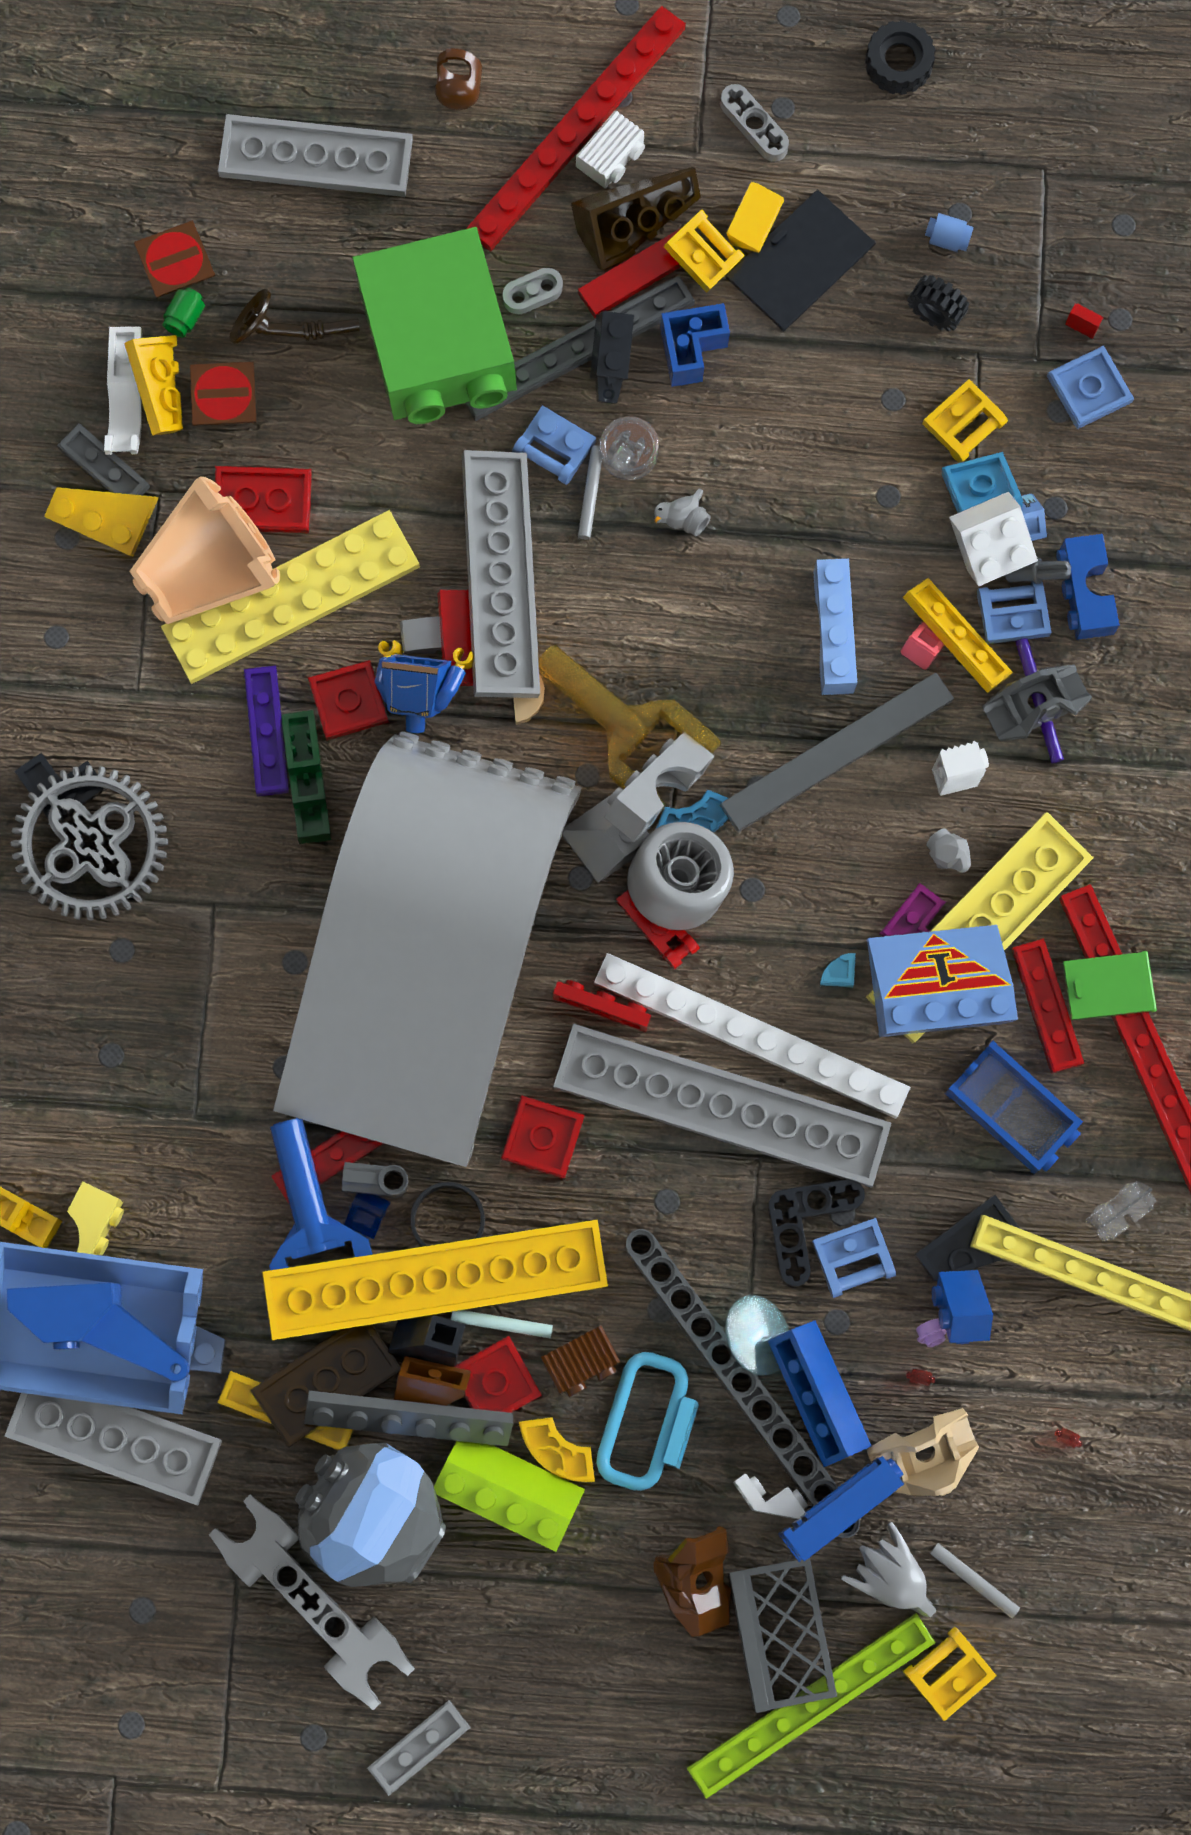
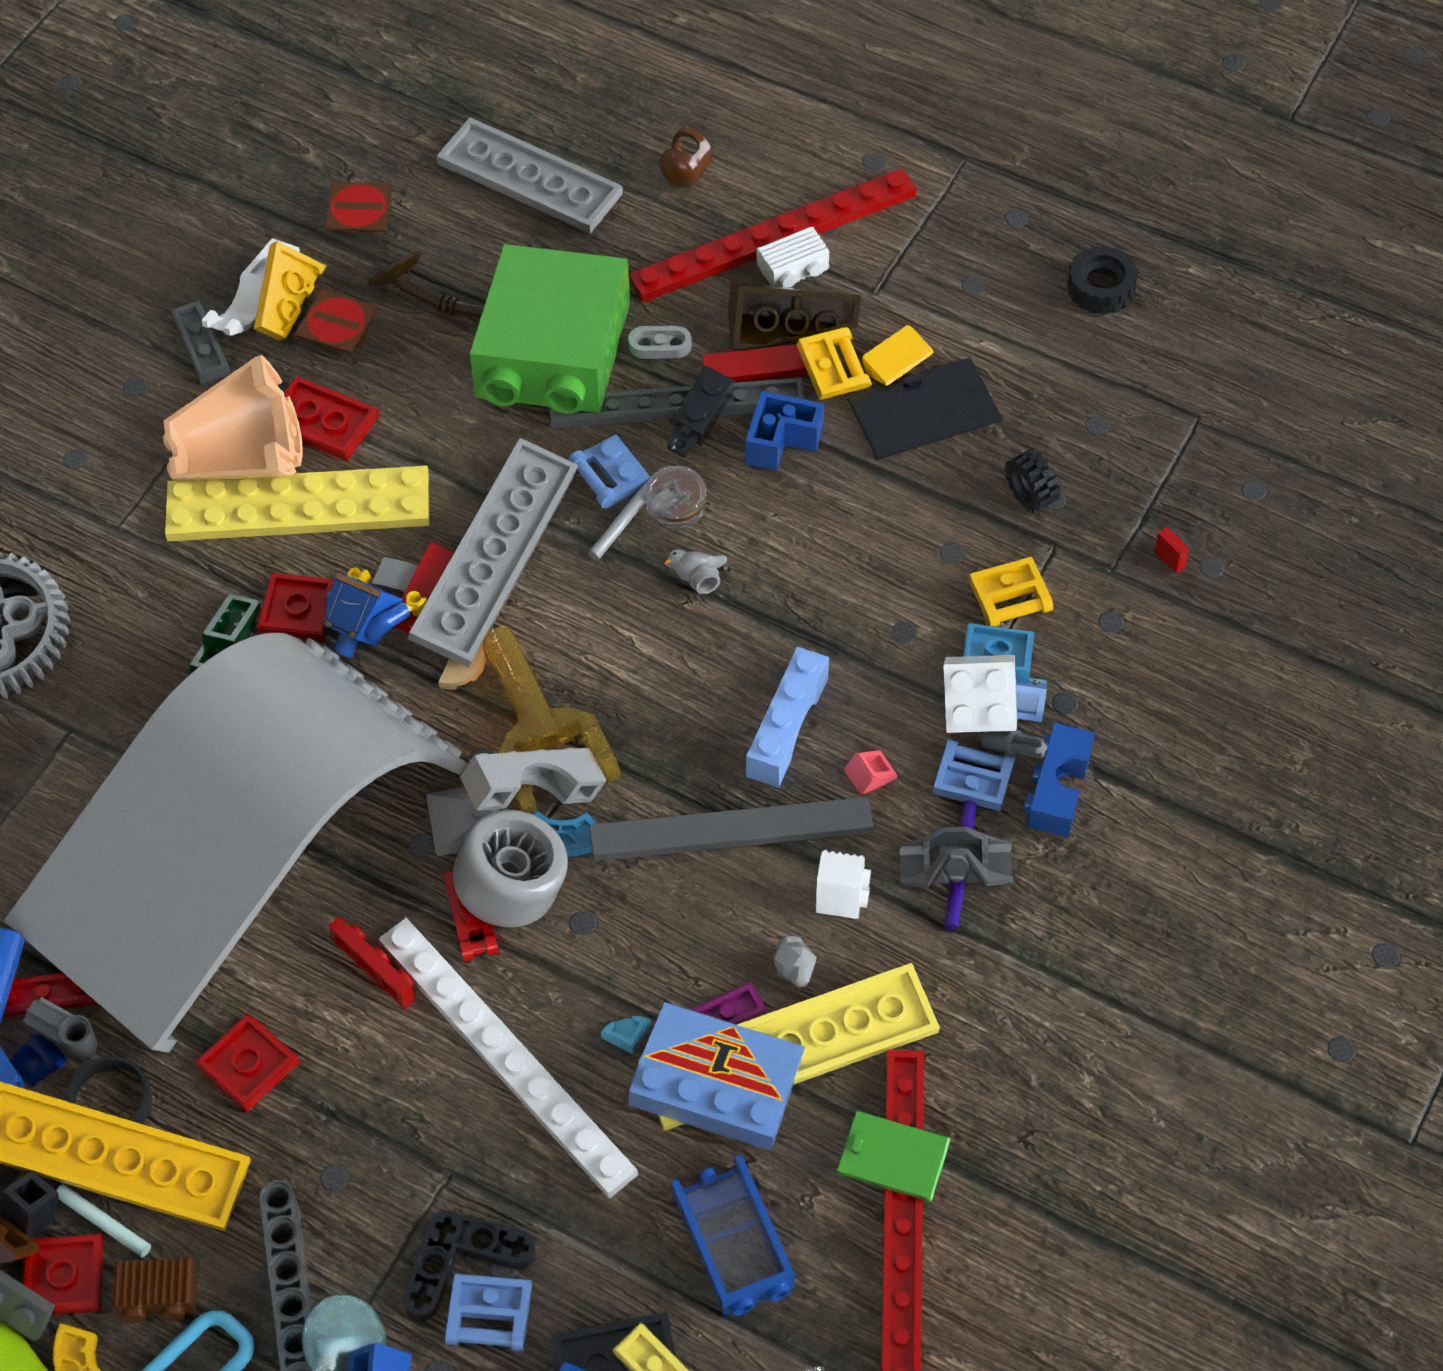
camera: 30 degrees right, 20 degrees down
(103, 516) = (171, 374): yellow wing -> none
(183, 312) = (341, 248): green brick -> none
(266, 731) = (216, 583): dark purple tile -> none
(722, 1105) = (441, 1108): light grey plate -> none
(733, 112) = (934, 296): light grey beam -> none
(949, 232) = (1076, 432): medium blue brick -> none
(957, 635) = (907, 773): yellow tile -> none
(1047, 1006) = (822, 1155): red tile -> none
(1090, 387) = (1150, 609): medium blue plate -> none

